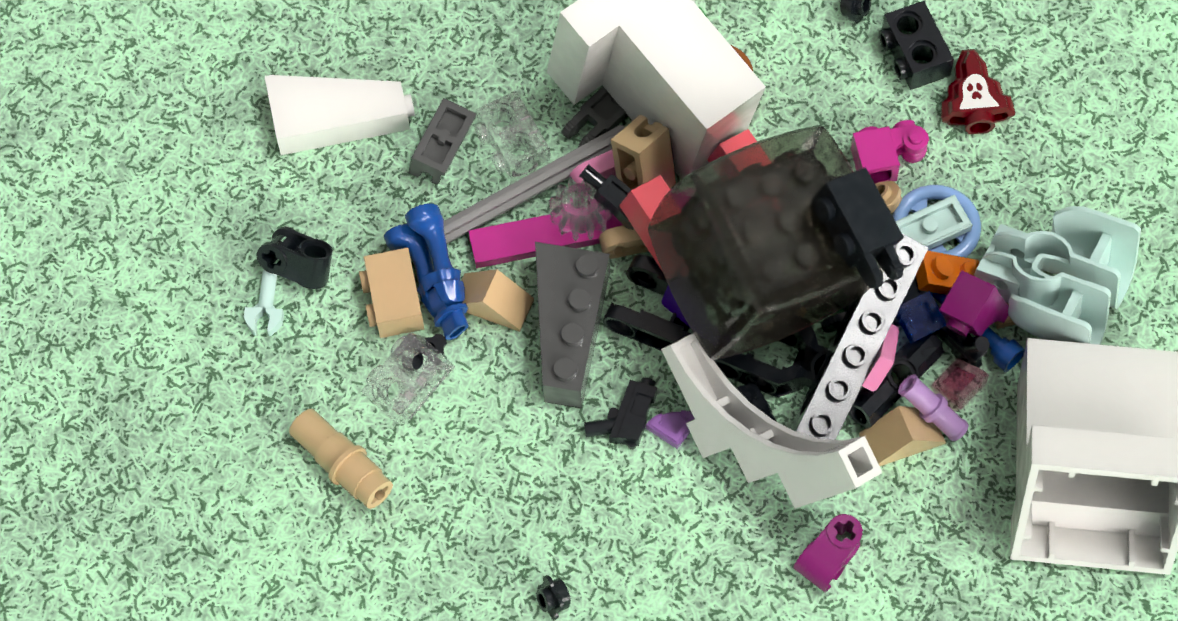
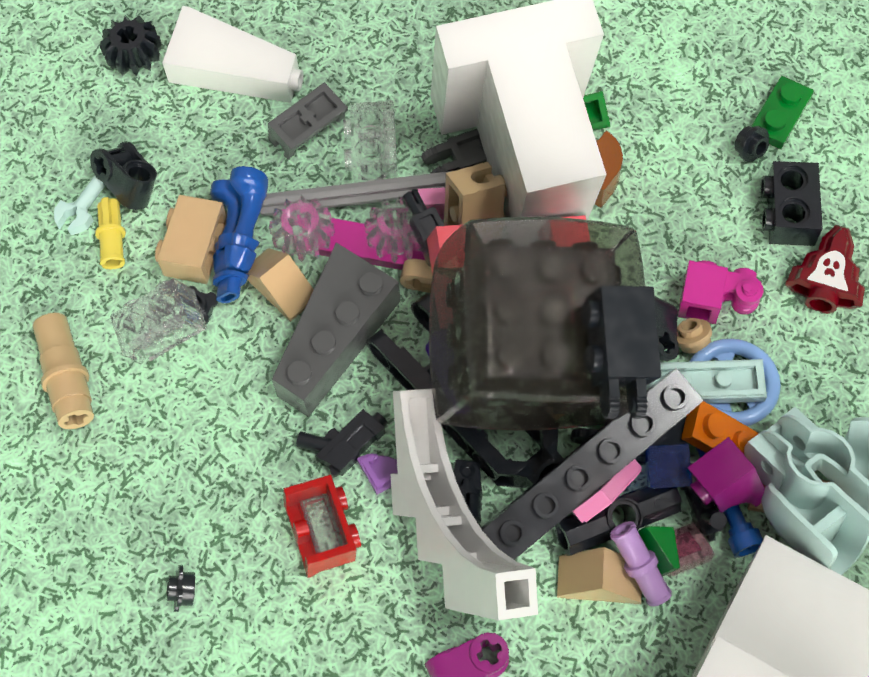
camera: 25 degrees right, 0 degrees up
(243, 135) = (130, 45): none -> black gear
(310, 319) = (110, 234): none -> light yellow axle
(493, 241) = (301, 228): none -> clear gear
(645, 492) = (320, 524): none -> red window
(943, 382) = (663, 543): none -> green slope

